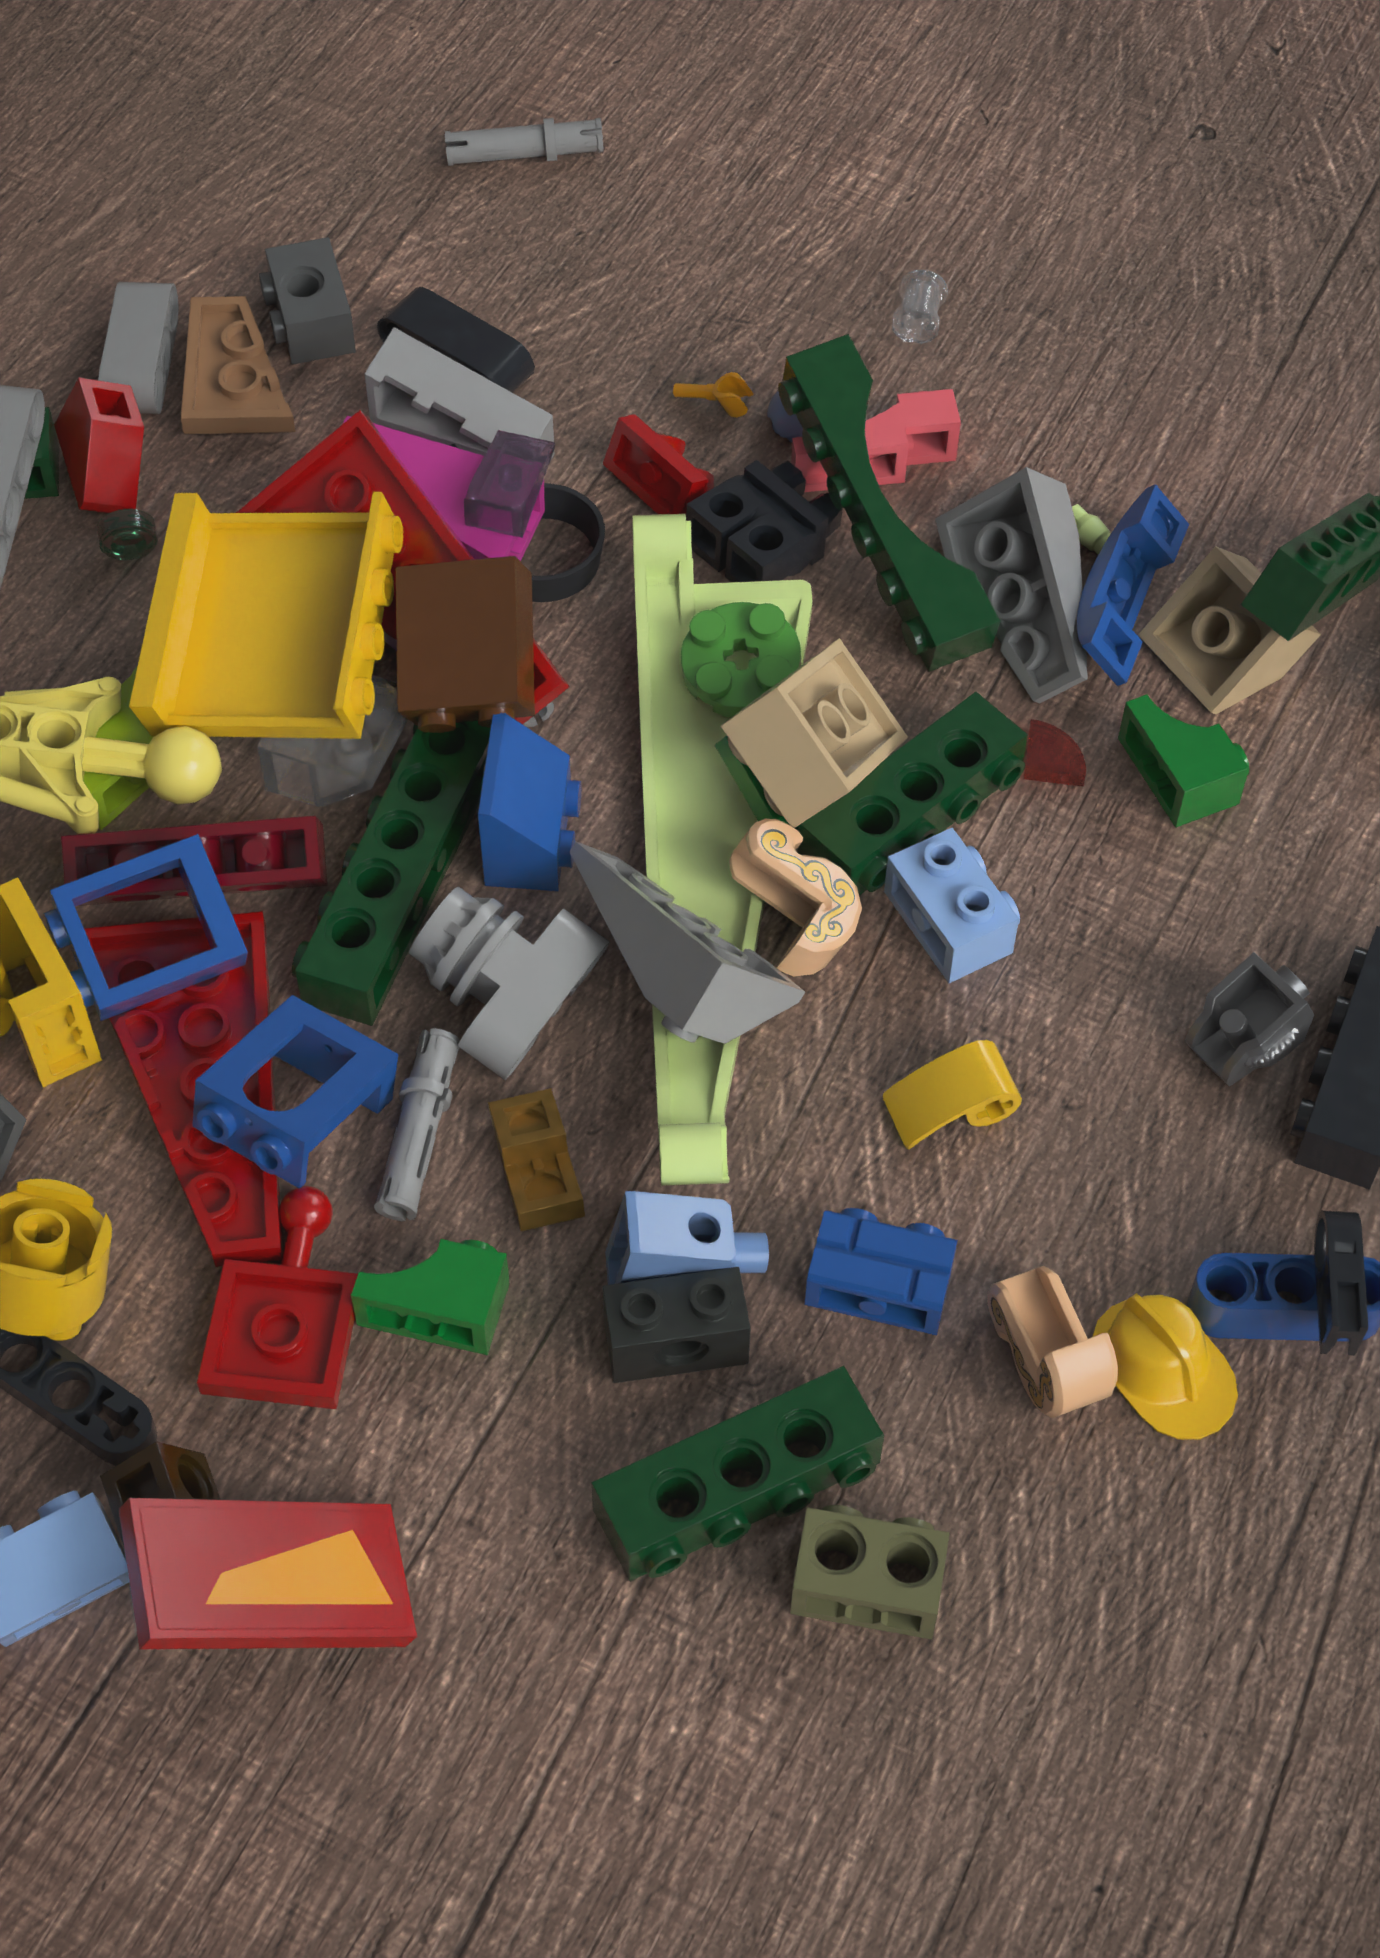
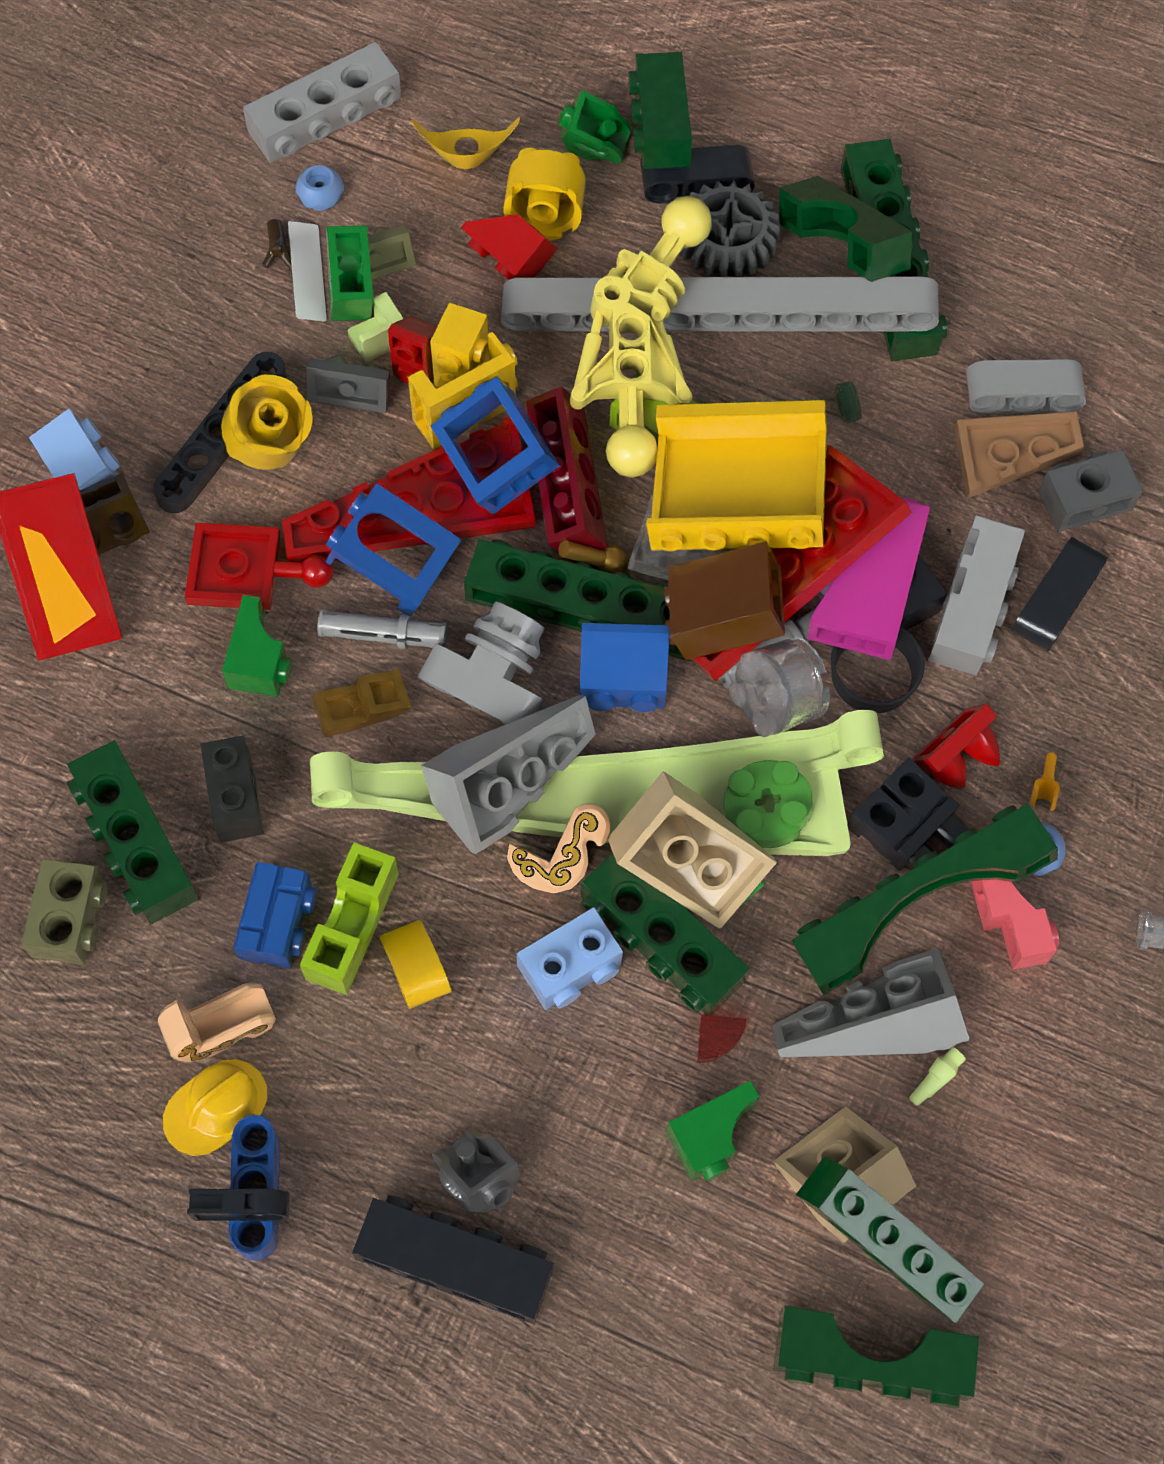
camera: 85 degrees right, 10 degrees up
(102, 444) = (917, 373): red slope -> none
(340, 830) = (607, 560): none -> pearl gold bar
(507, 483) = (878, 616): clear purple slope -> none
(585, 622) = (780, 686): none -> clear brick
(678, 1236) = (278, 769): medium blue torso -> none
(851, 1150) = (360, 900): none -> lime arch
(1120, 578) = (878, 1085): blue slope -> none

